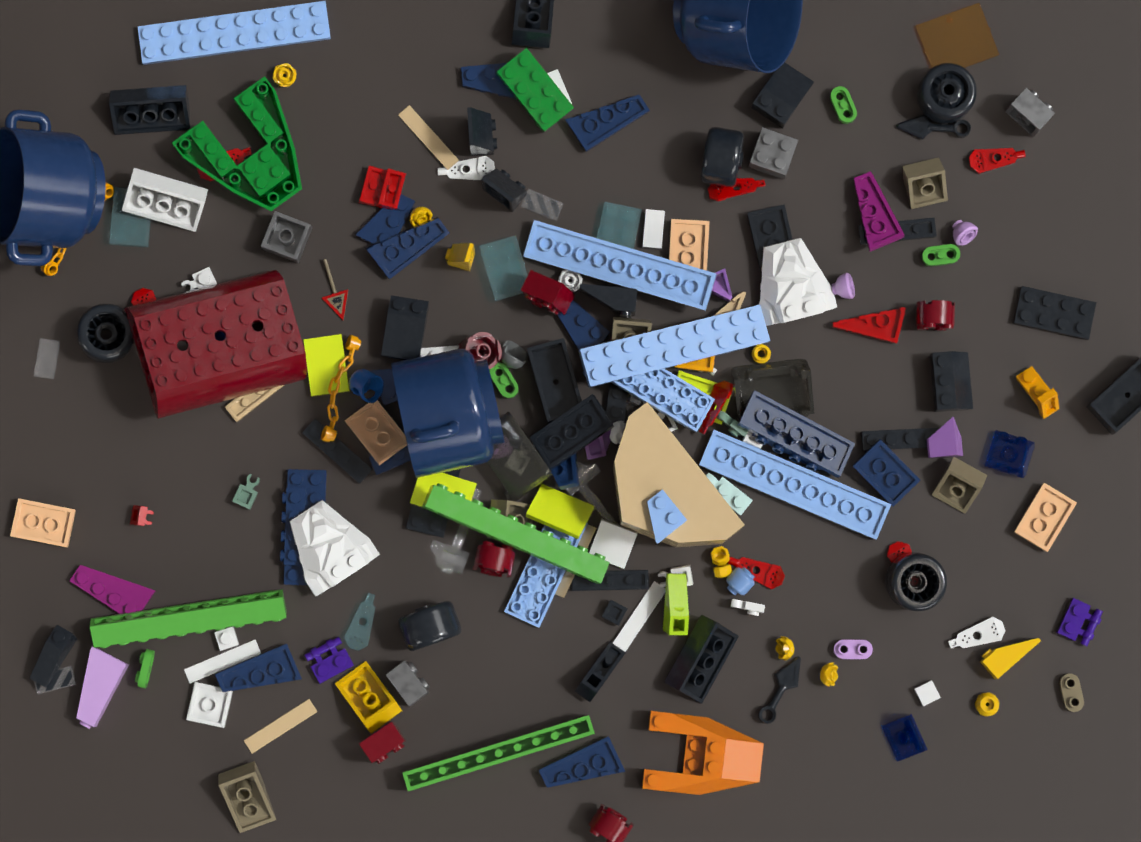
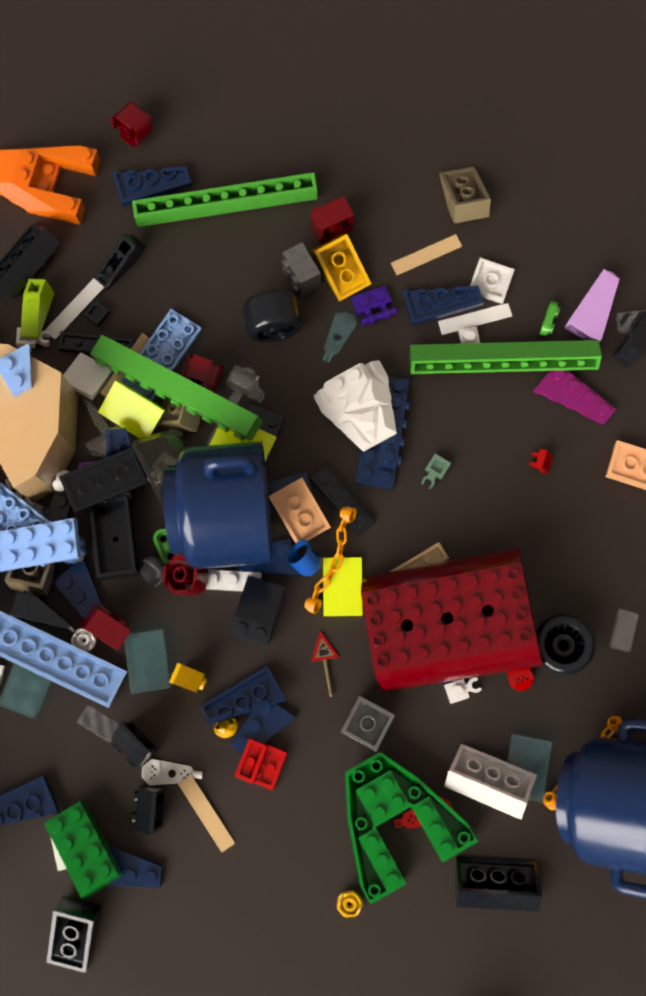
camera: 170 degrees left, 5 degrees down
(234, 32) = (398, 960): light blue plate -> none

